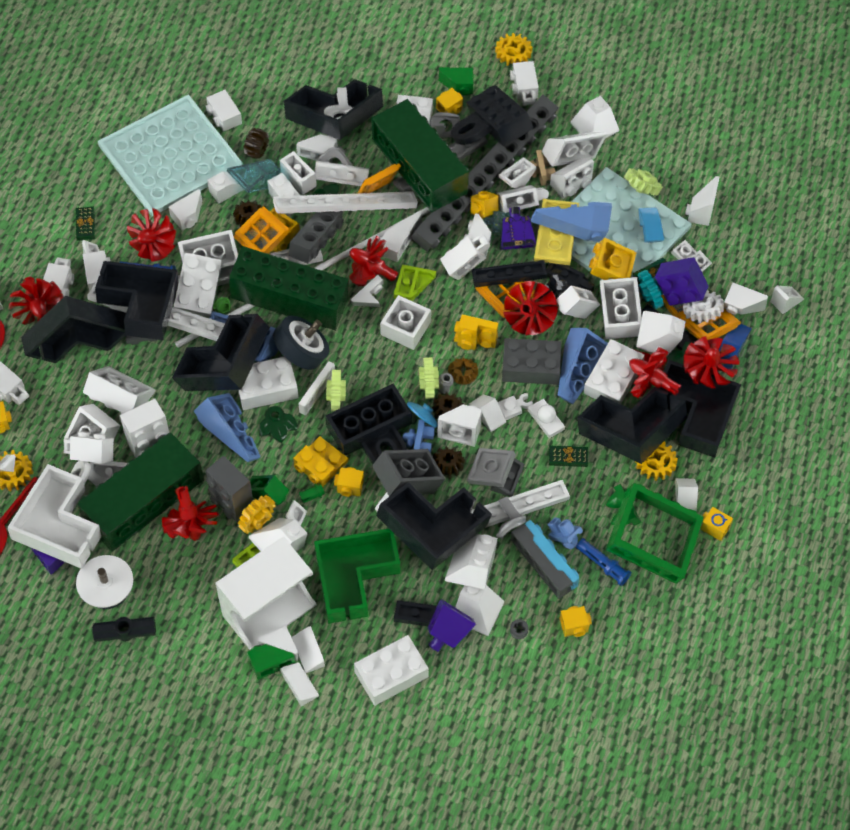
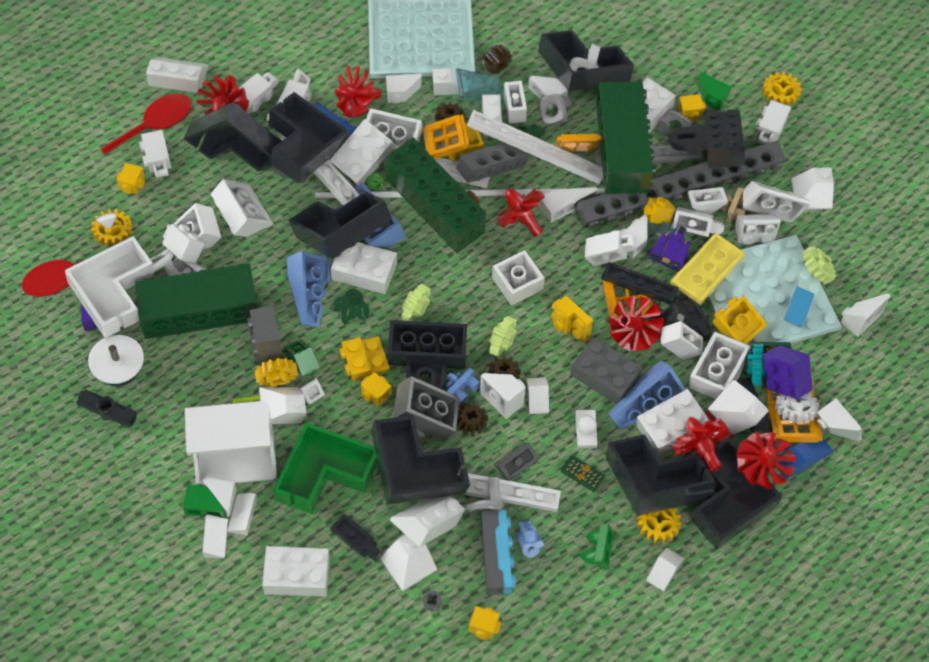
camera: 30 degrees right, 0 degrees up
(85, 223) = (312, 56): dark green tile -> none
(144, 426) = (234, 247): white brick -> none
(189, 518) = (218, 344): red piece -> none
(223, 110) = (490, 18): white brick -> none
(301, 342) = (413, 247): black wheel -> none
(312, 493) = (338, 381): green pin -> none
(316, 389) = (399, 295): white tile -> none
(340, 173) = (550, 119): white tile -> none
(364, 296) = (499, 236): white slope -> none
(413, 281) = (550, 246): lime wing -> none
(423, 412) = (476, 363): dark azure dish -> none
(445, 381) = (516, 348): light grey pin -> none
(449, 626) = (370, 562): dark purple torso -> none
(470, 374) = (543, 354): pearl gold gear -> none
(491, 467) = (505, 444): light grey tile -> none
(511, 407) = (562, 402): white plate -> none
(583, 222) = (735, 272): medium blue wedge -> none
(610, 567) = (550, 592): blue pin -> none
(642, 558) = (582, 603): green window -> none
(685, 250) = (819, 356): white slope -> none
(716, 523) = (674, 610): yellow brick -> none
(785, 298) = (885, 440): white slope -> none

